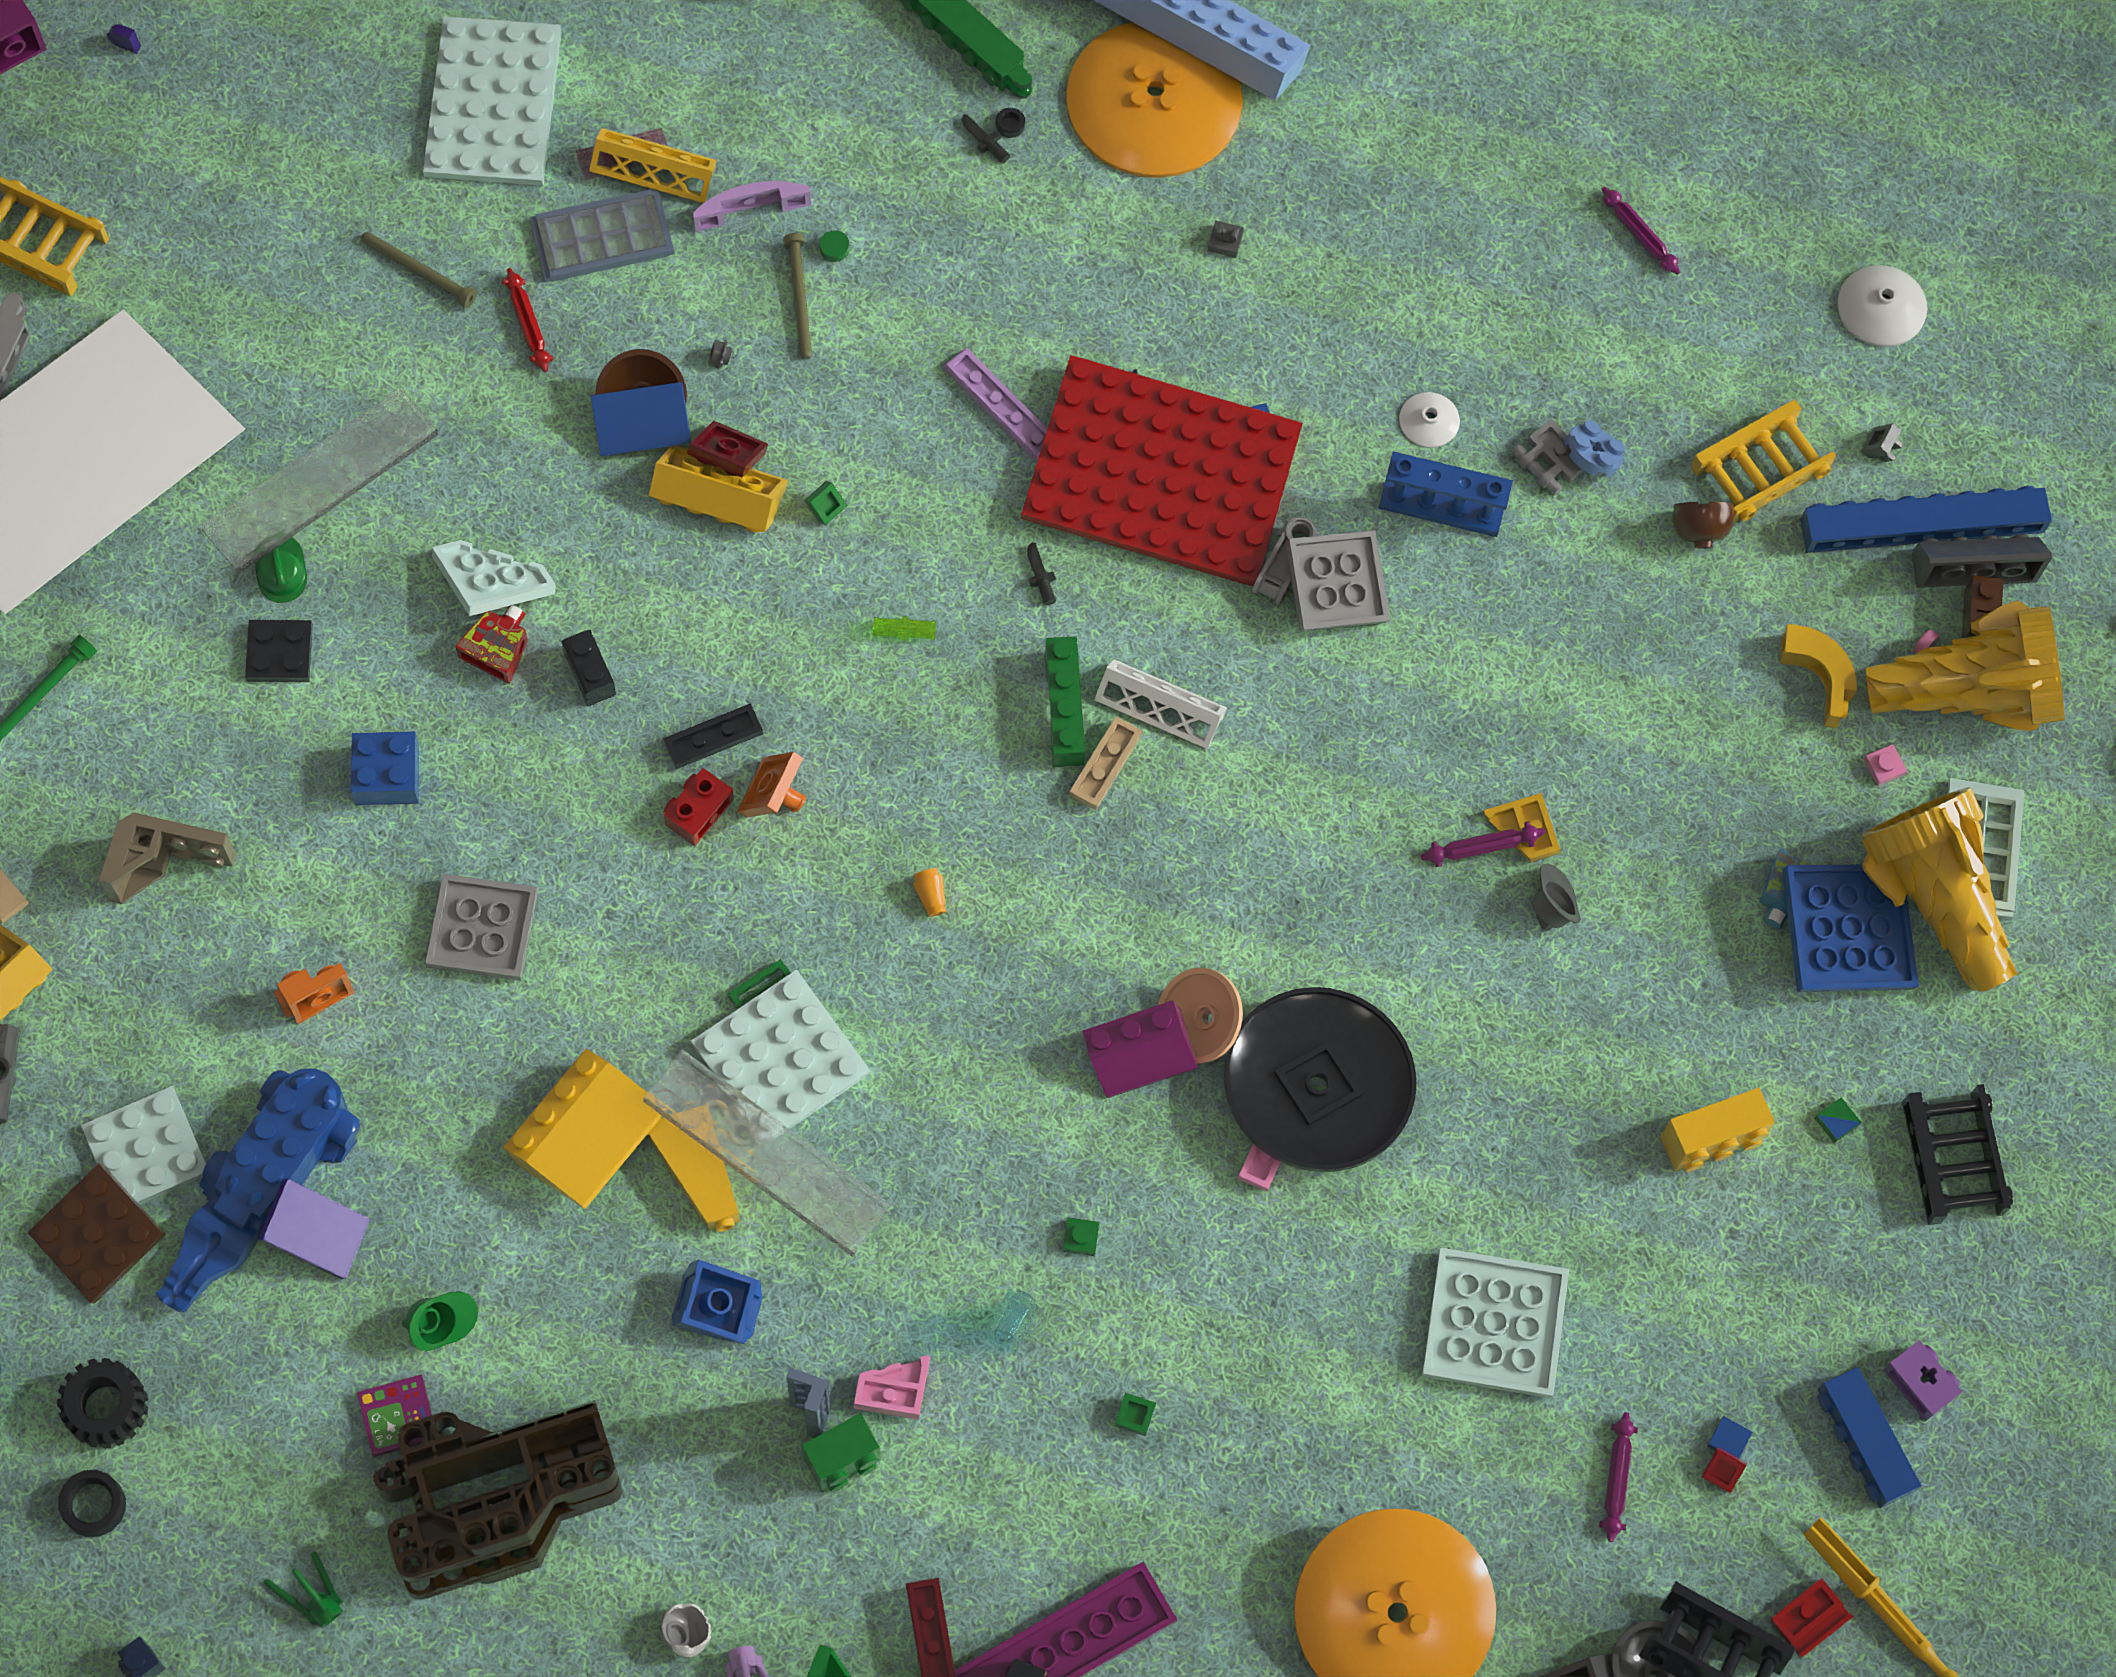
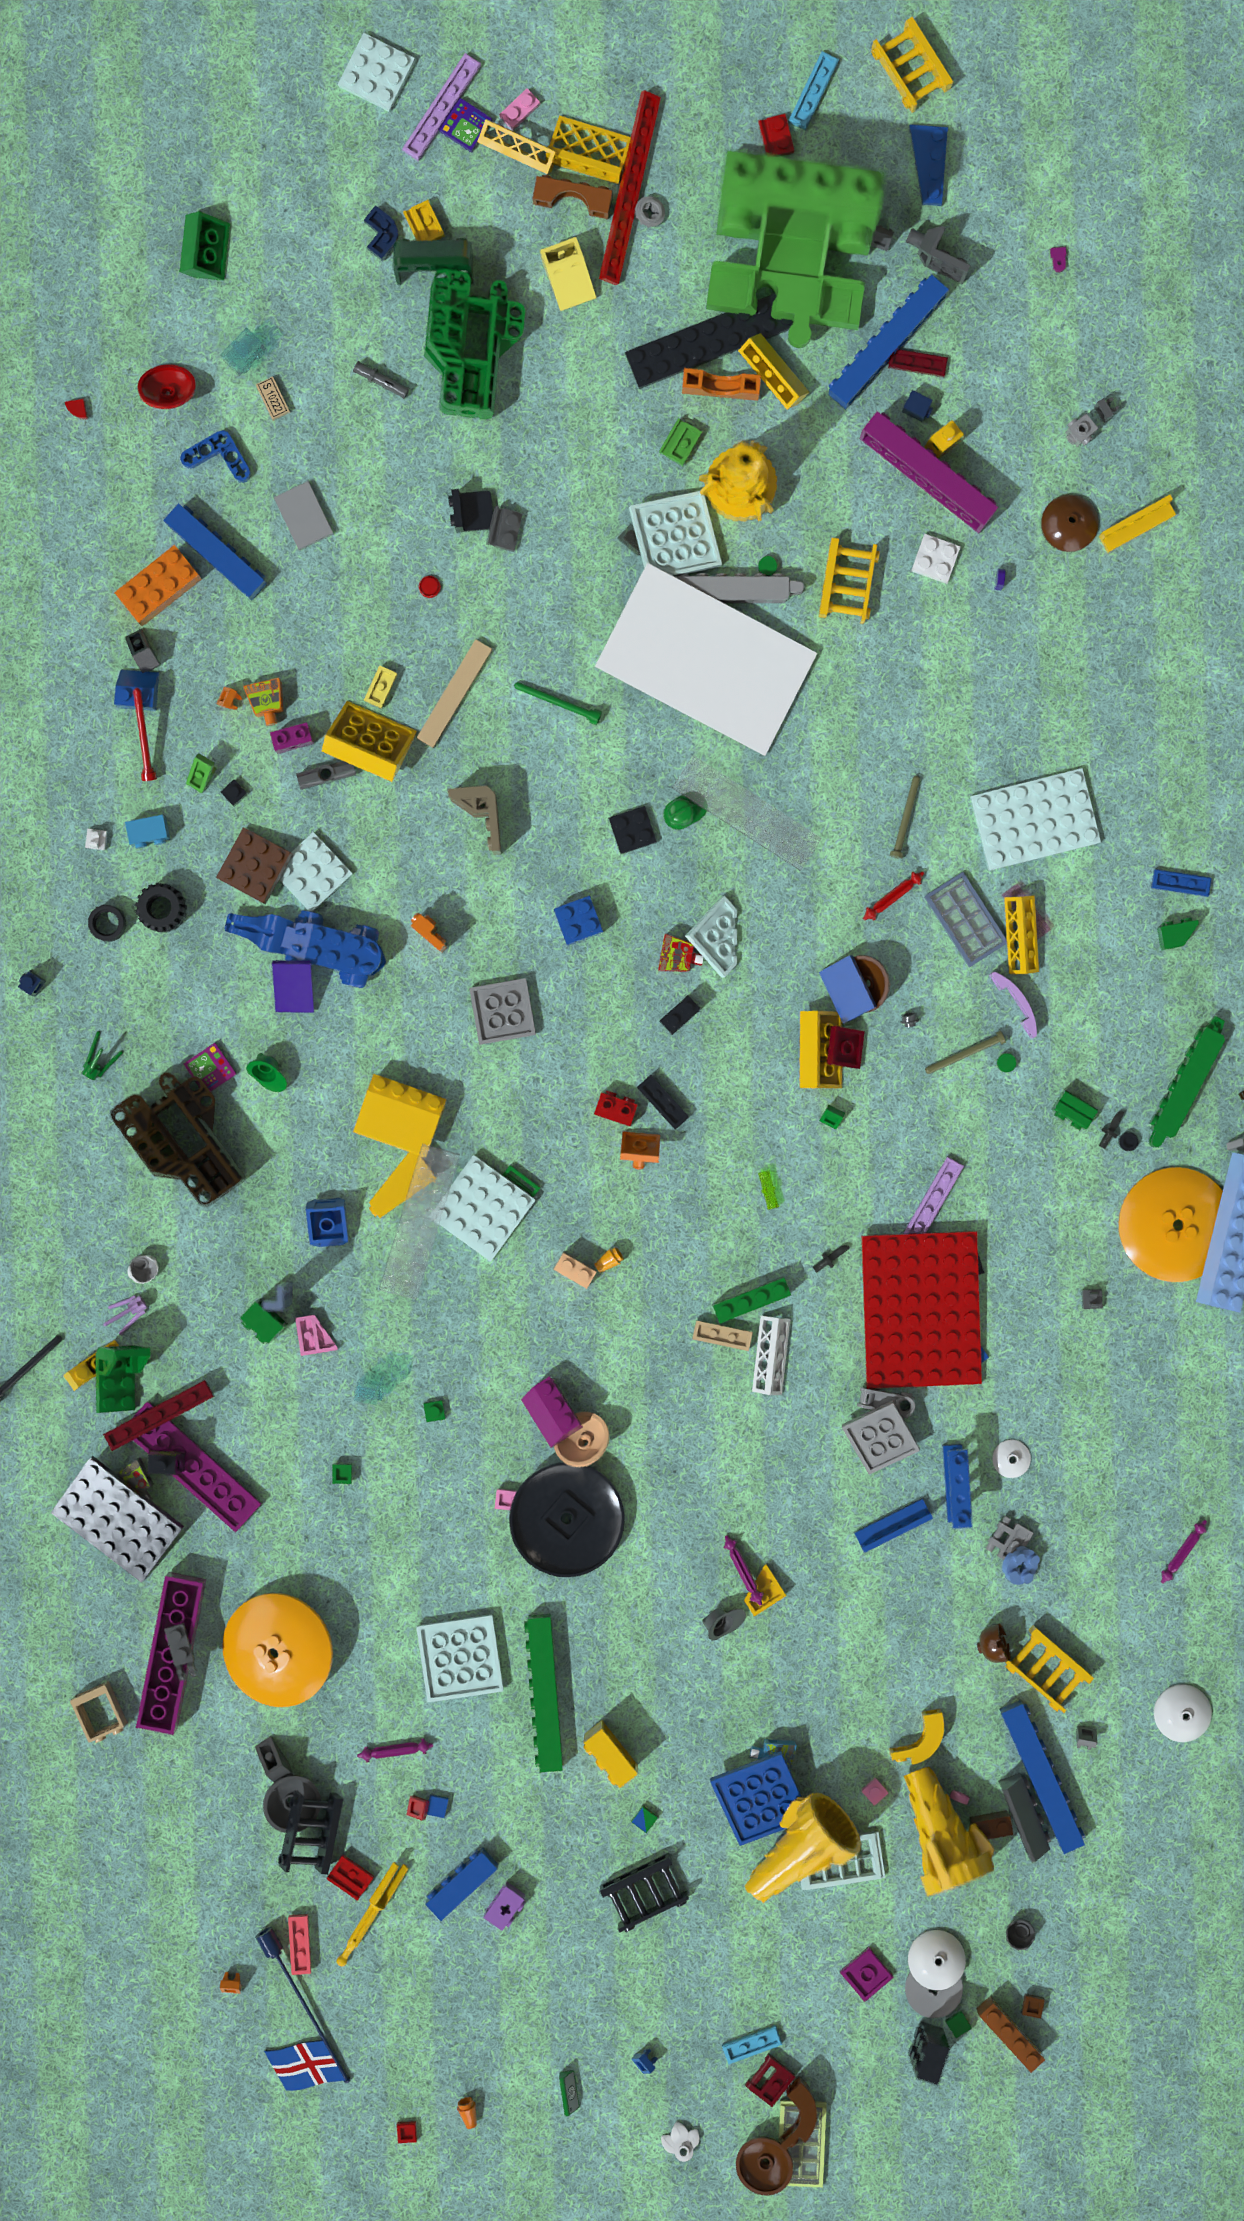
camera: 70 degrees right, 20 degrees up
(56, 114) = (935, 558): none -> white plate
(928, 944) = (575, 1270): none -> light nougat brick
(938, 175) = (1074, 1110): none -> green brick
(1479, 610) = (893, 1525): none -> blue fence
(1591, 1206) = (544, 1692): none -> green brick

